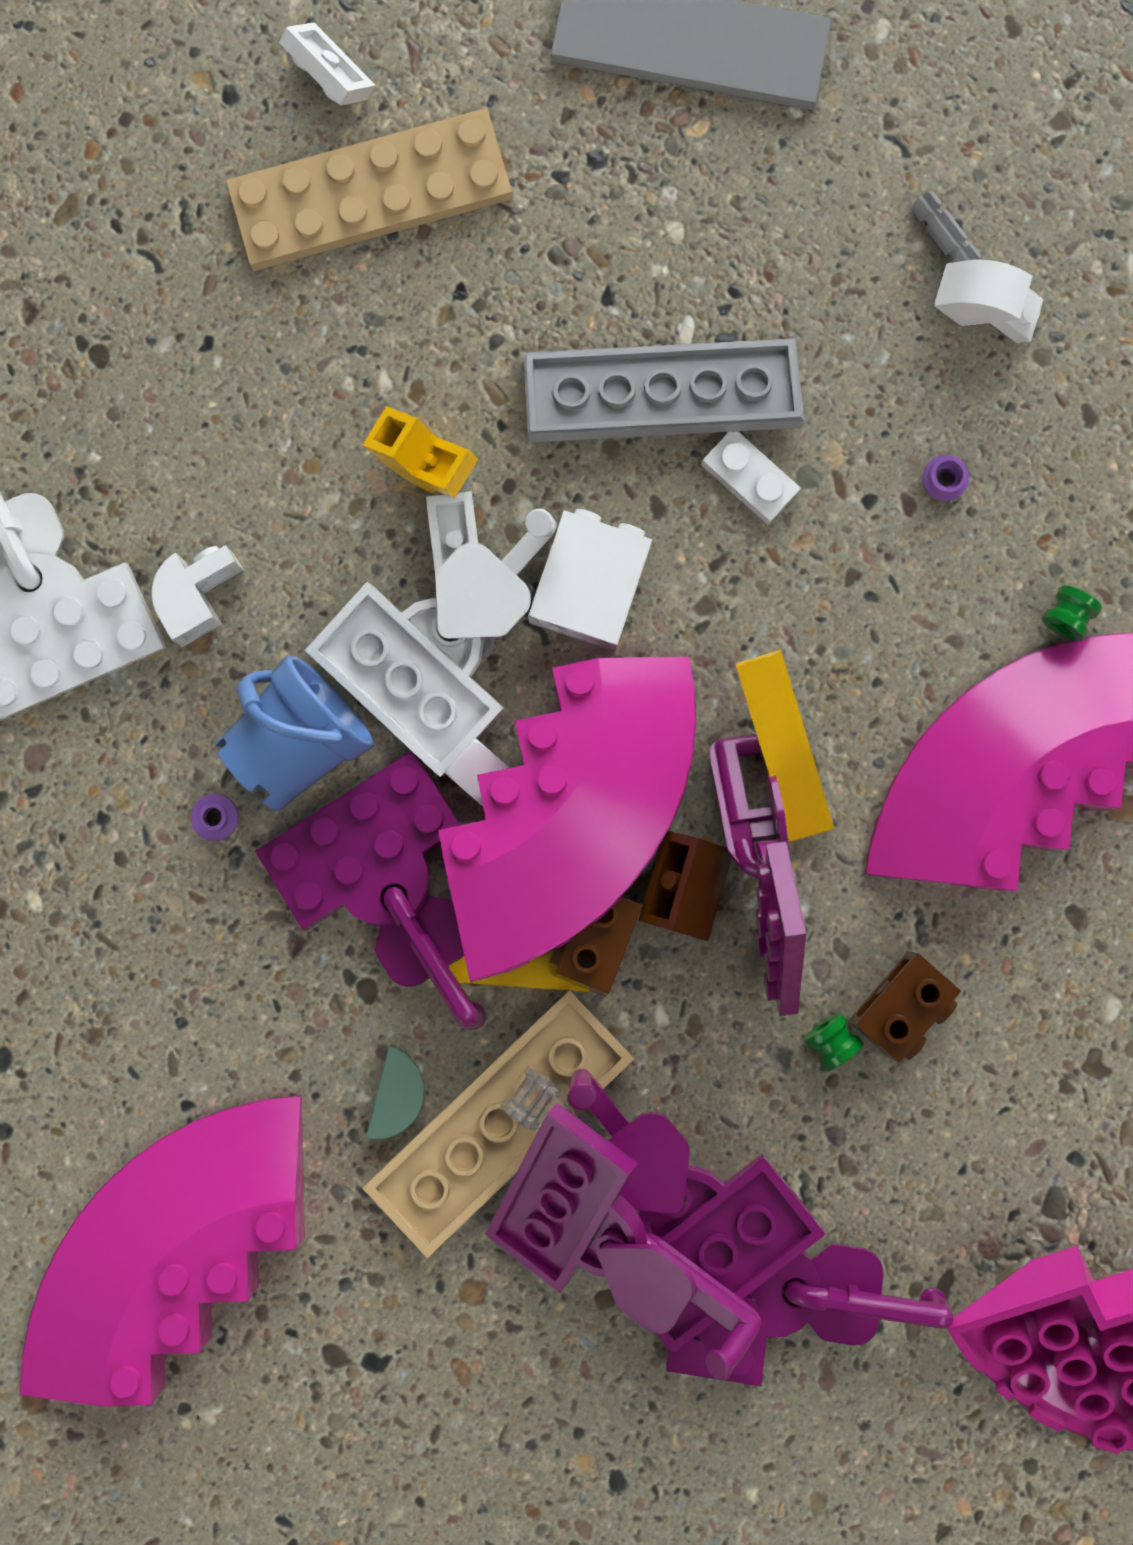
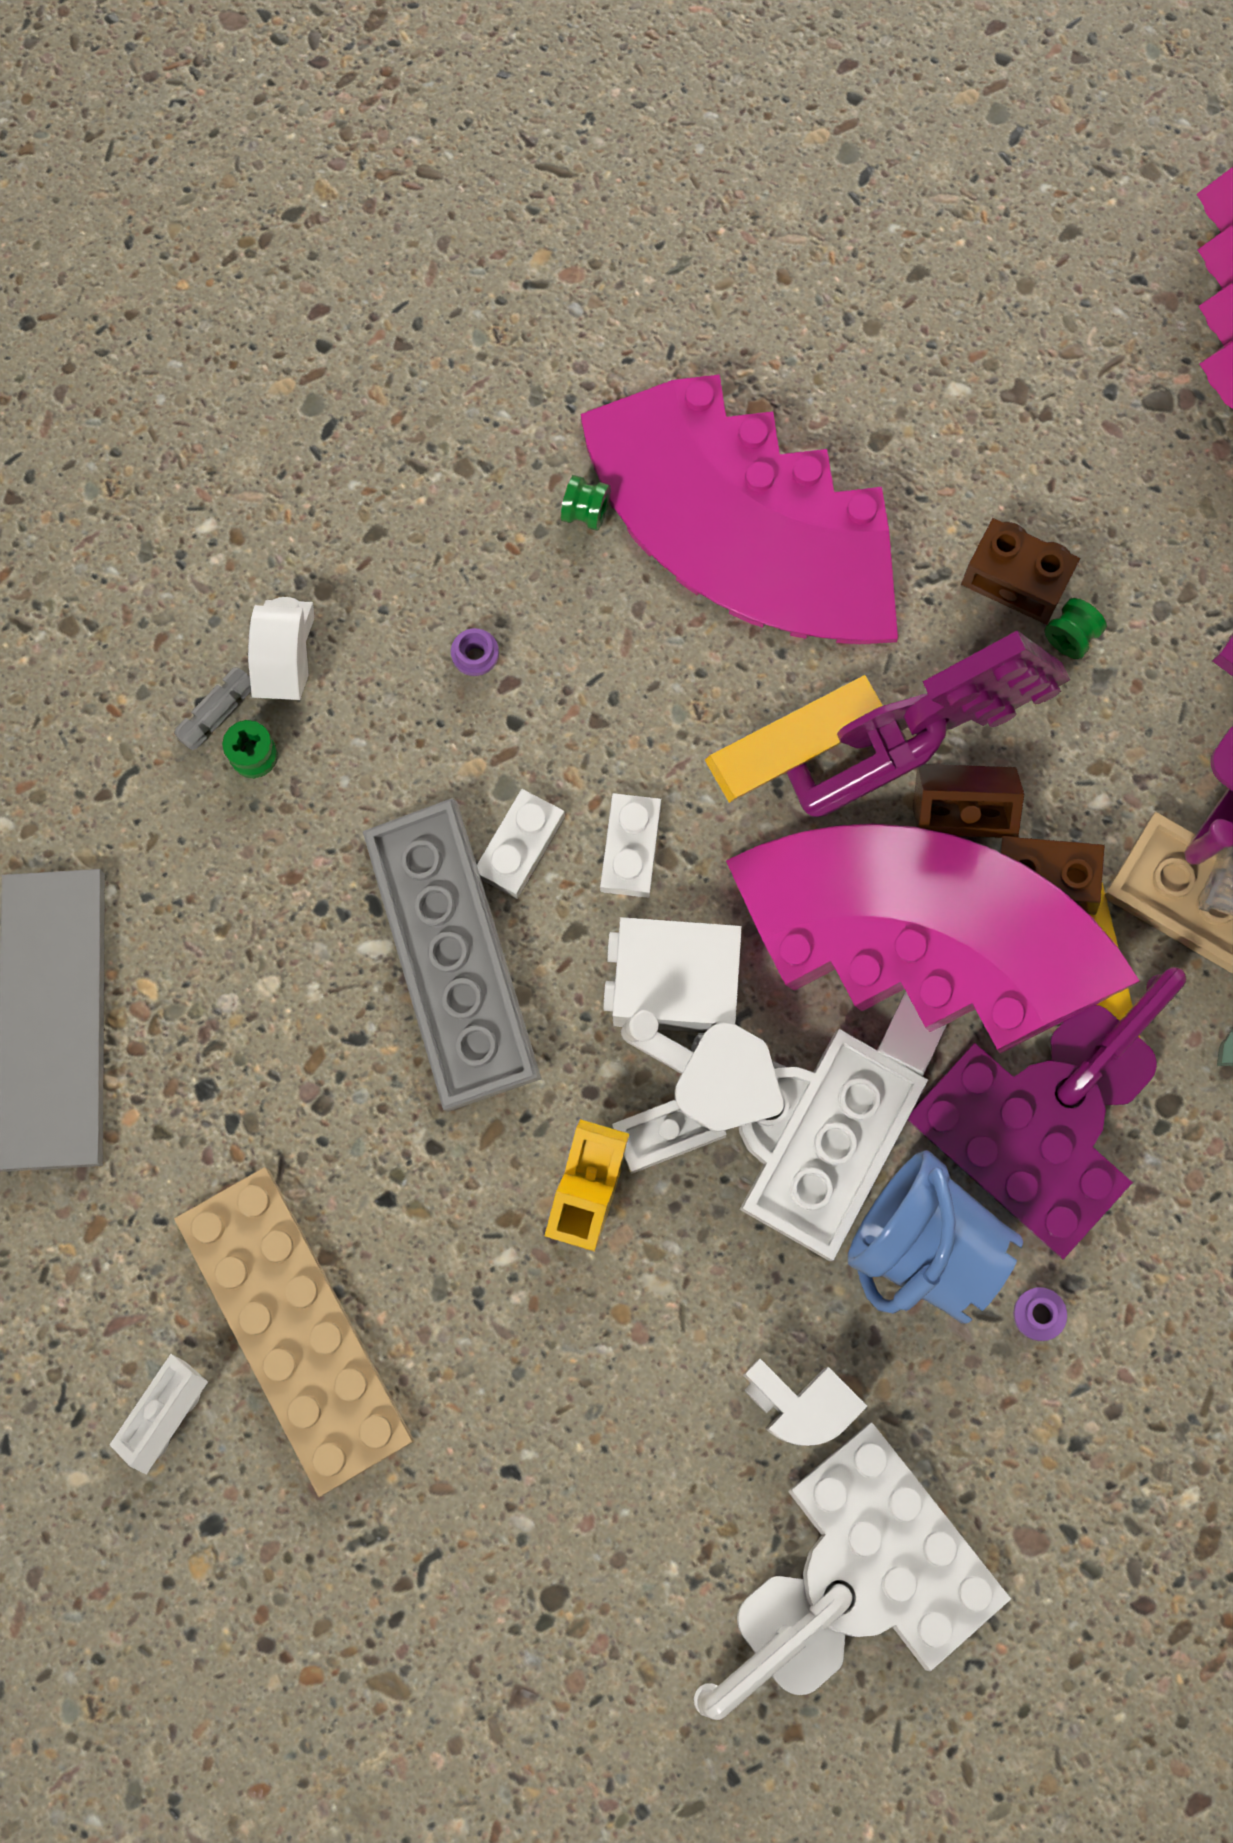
camera: 95 degrees left, 10 degrees down
(724, 575) = (630, 845): none -> white plate
(893, 265) = (255, 759): none -> green wheel

